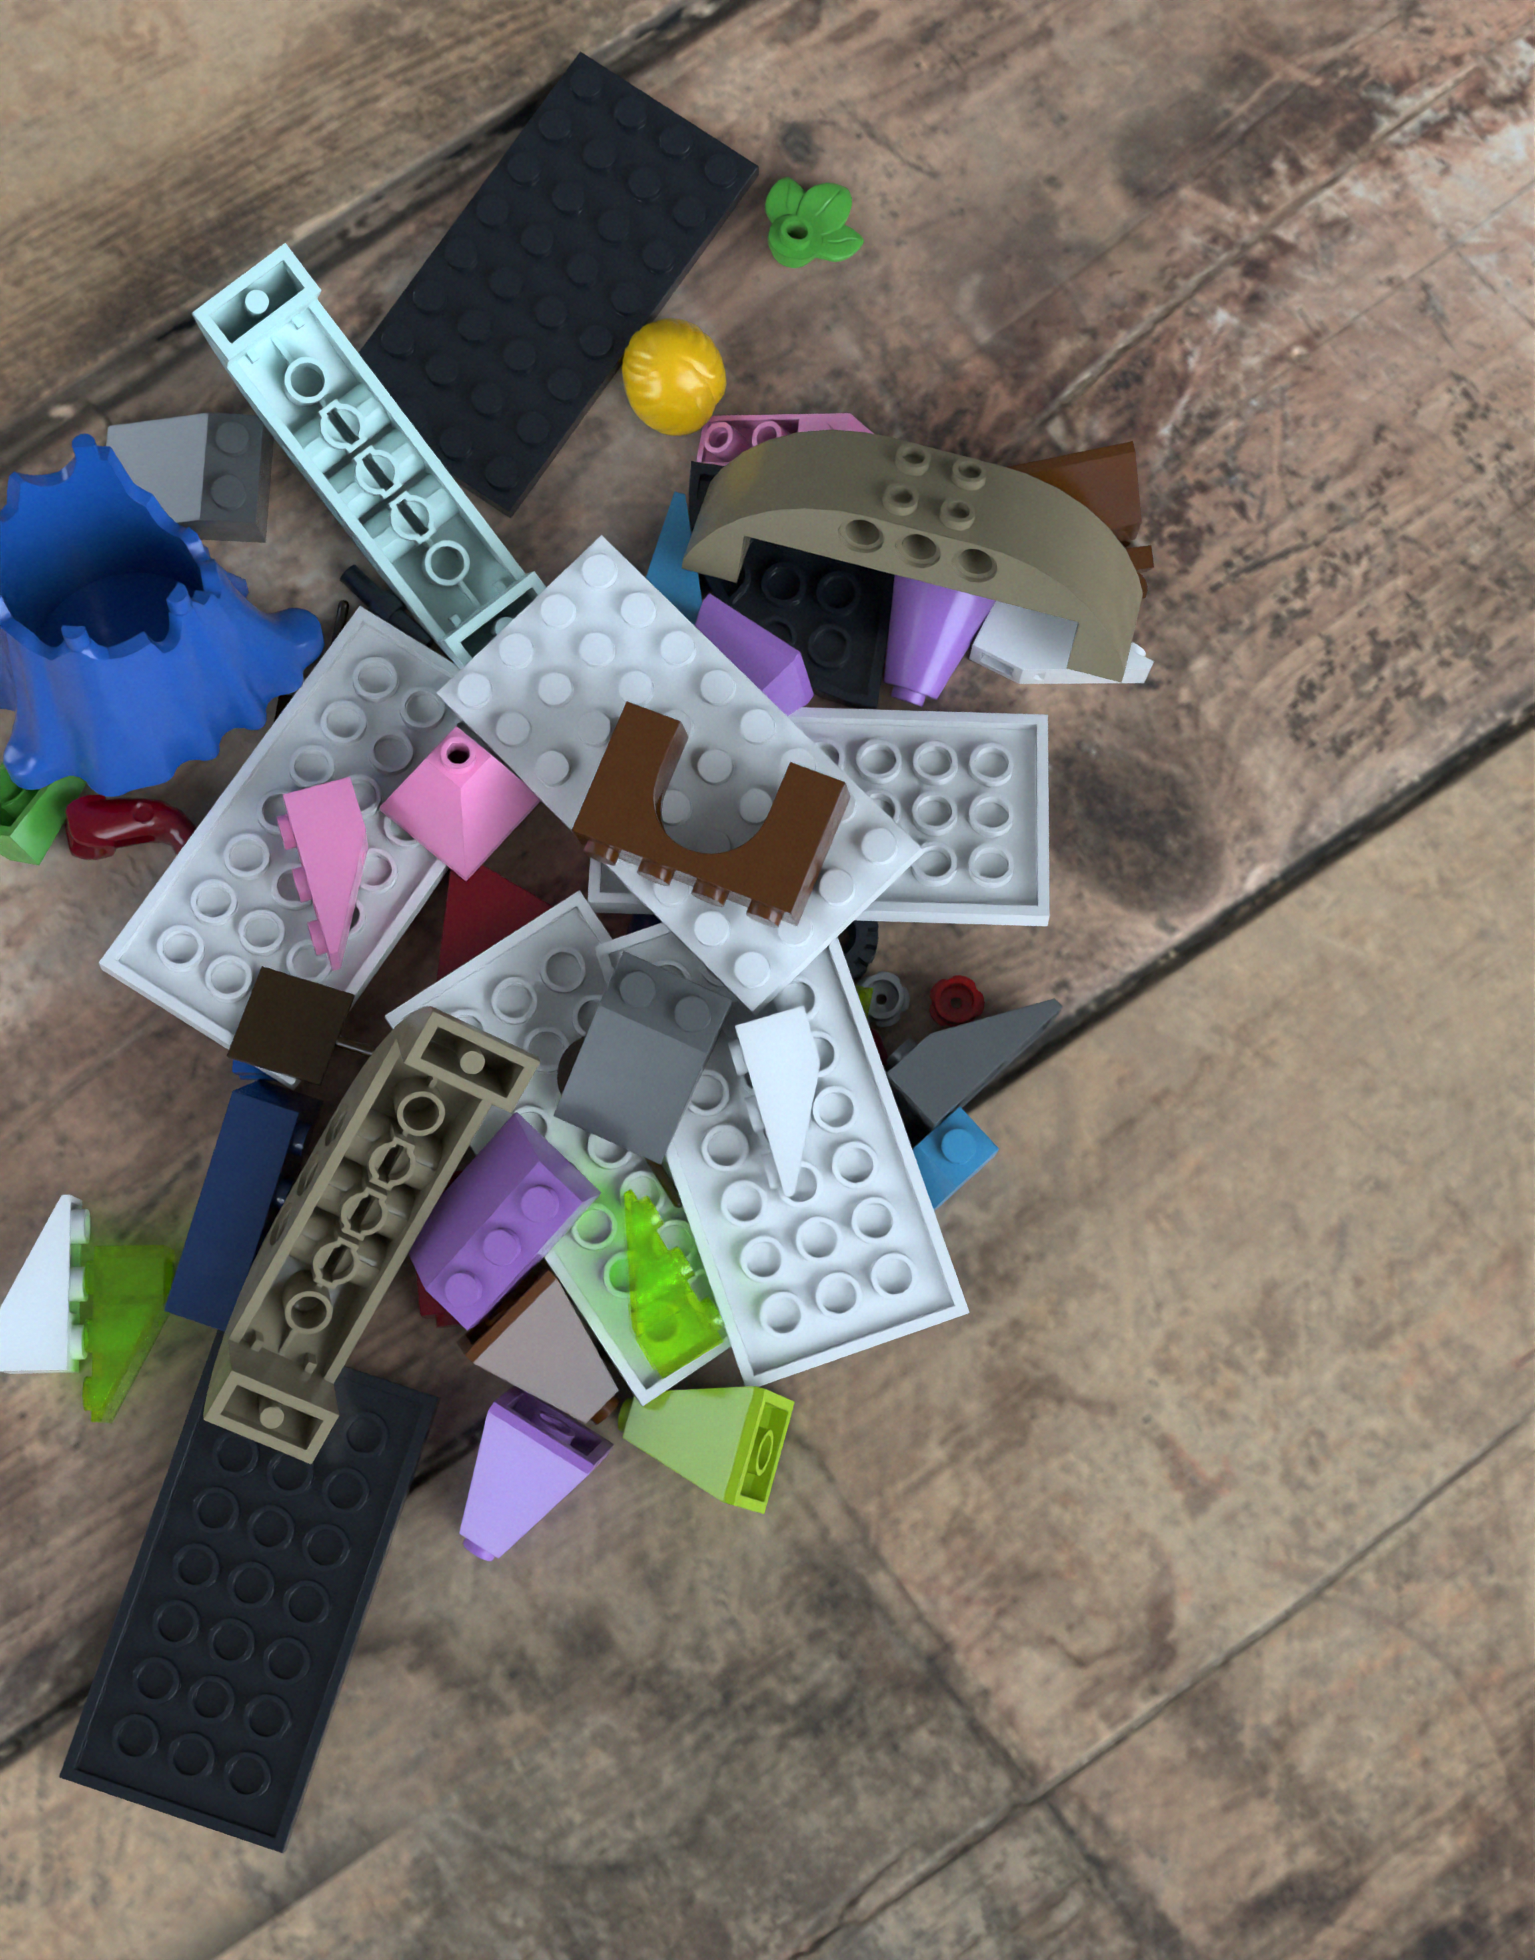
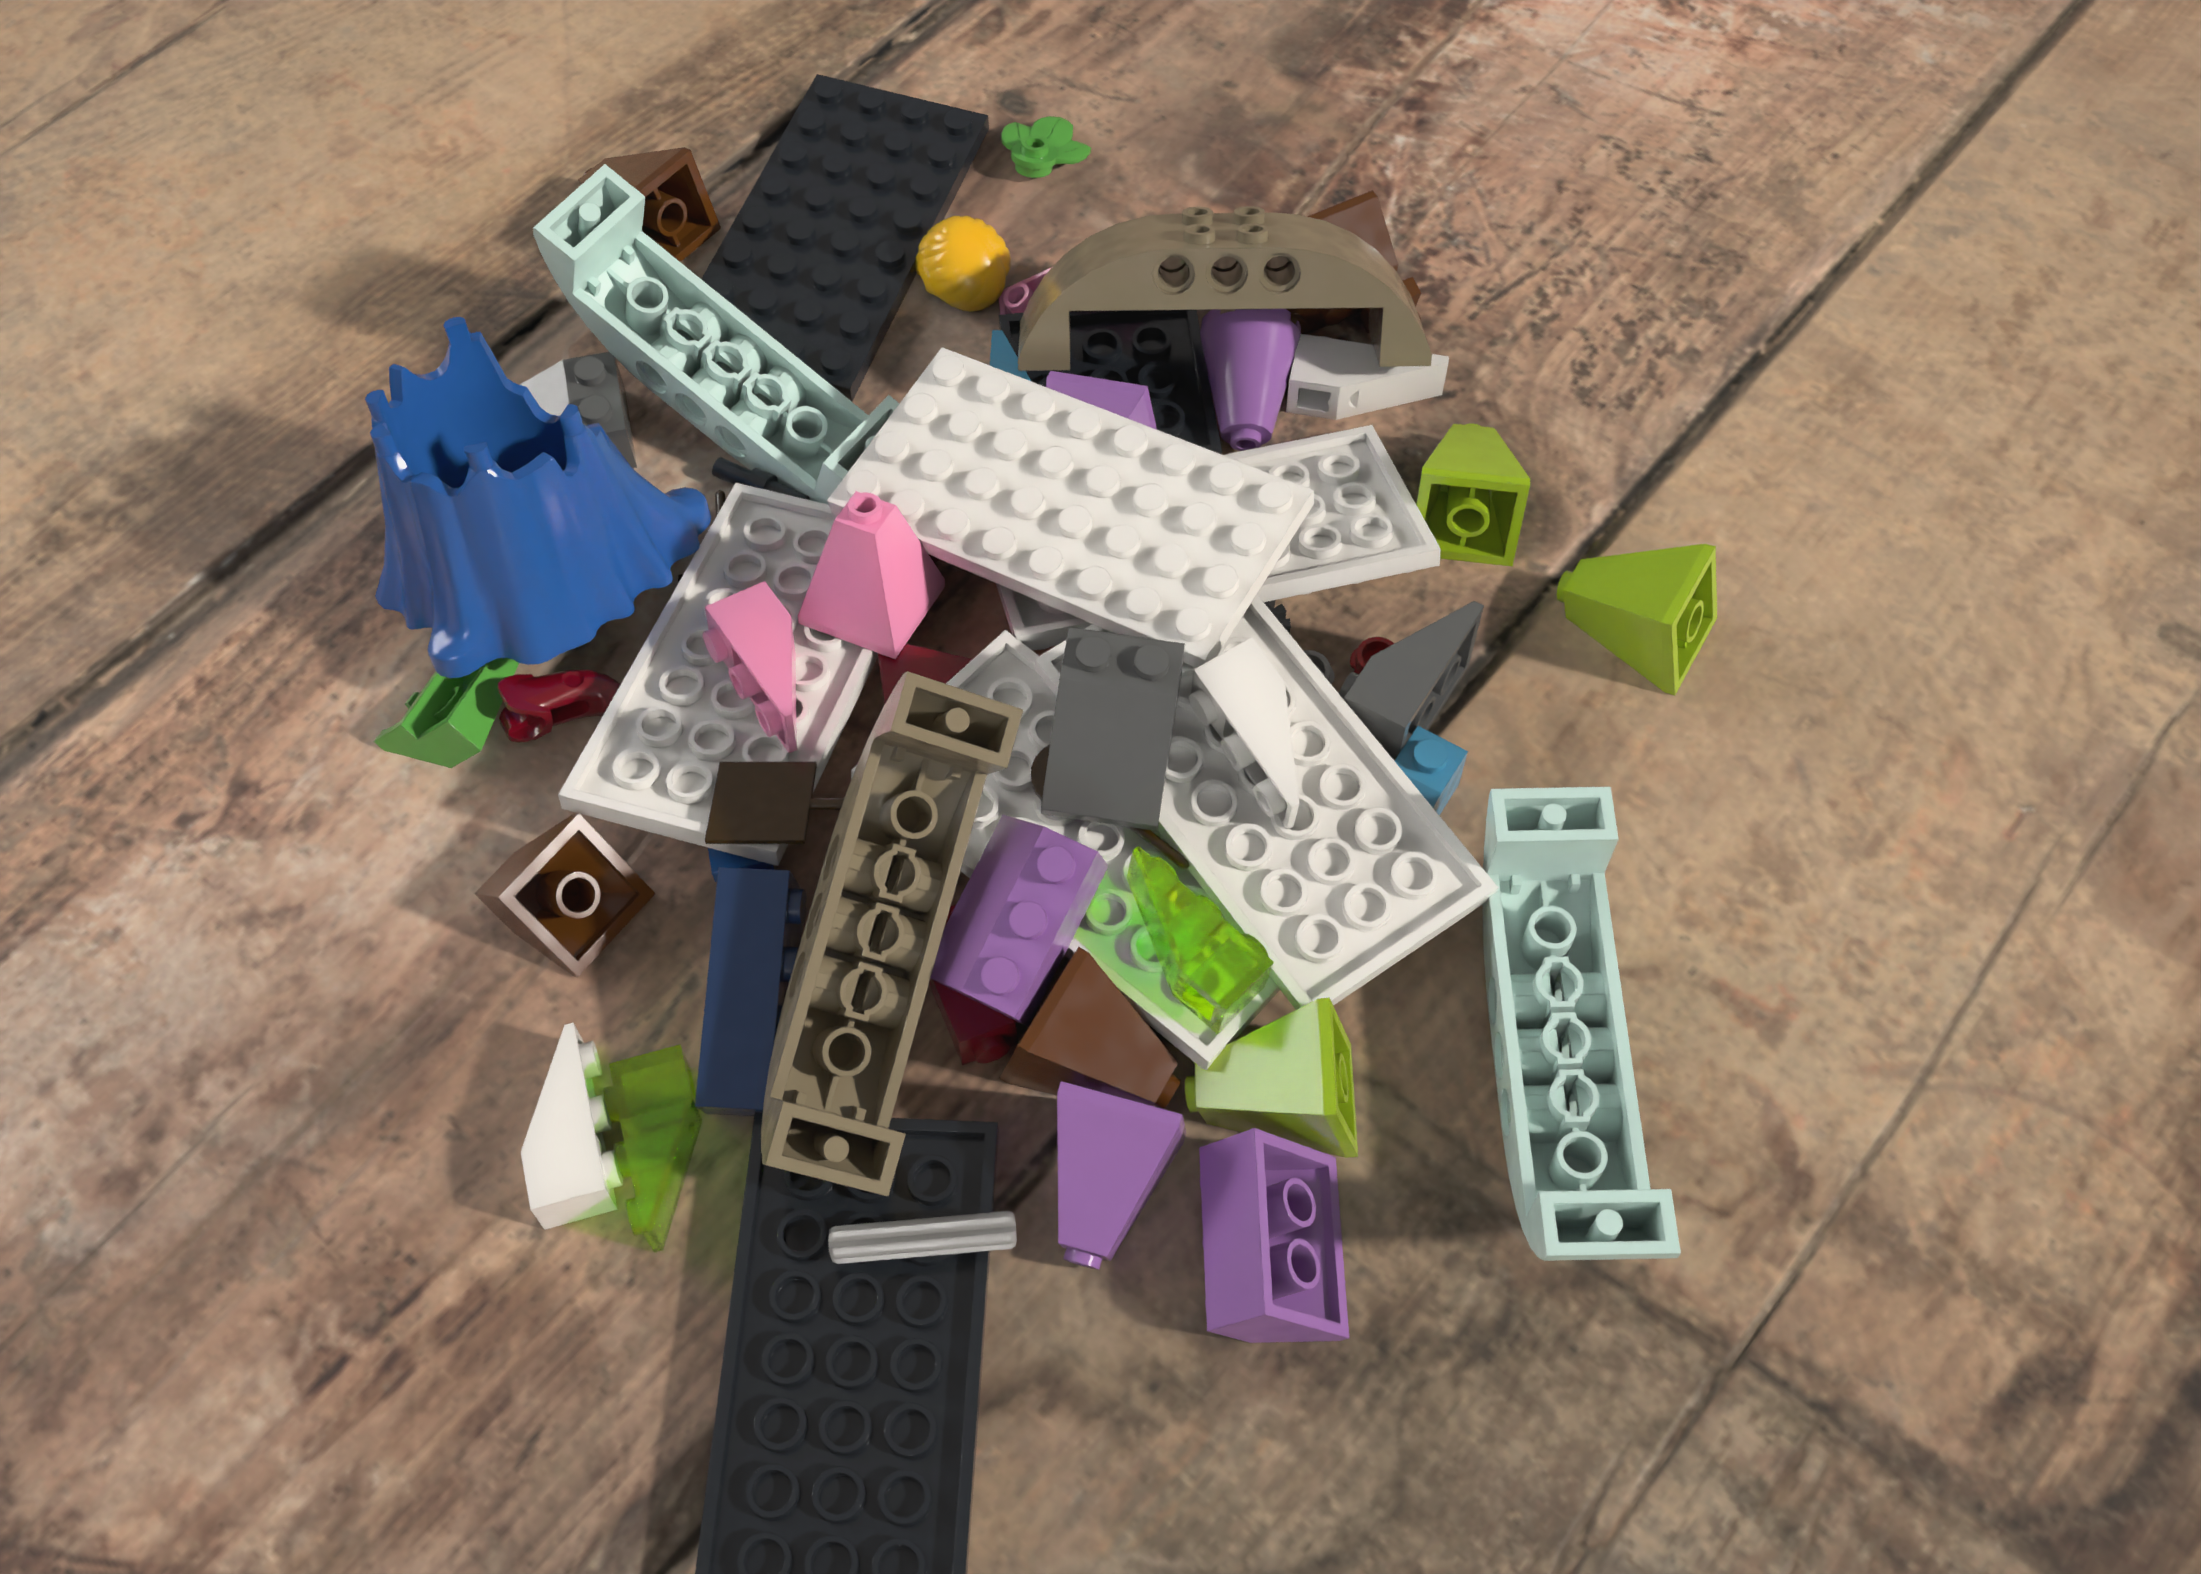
camera: 15 degrees left, 20 degrees down
(90, 1047) = (566, 894): none -> reddish brown slope
(339, 1494) = (922, 1237): none -> light grey axle
(346, 208) = (676, 200): none -> reddish brown slope
(655, 1581) = (1272, 1241): none -> medium lavender slope
(766, 874) = (1174, 536): reddish brown arch -> none
(979, 1481) = (1564, 1032): none -> light aqua slope
(1118, 833) = (1474, 496): none -> lime slope
(1248, 1023) = (1646, 607): none -> lime slope

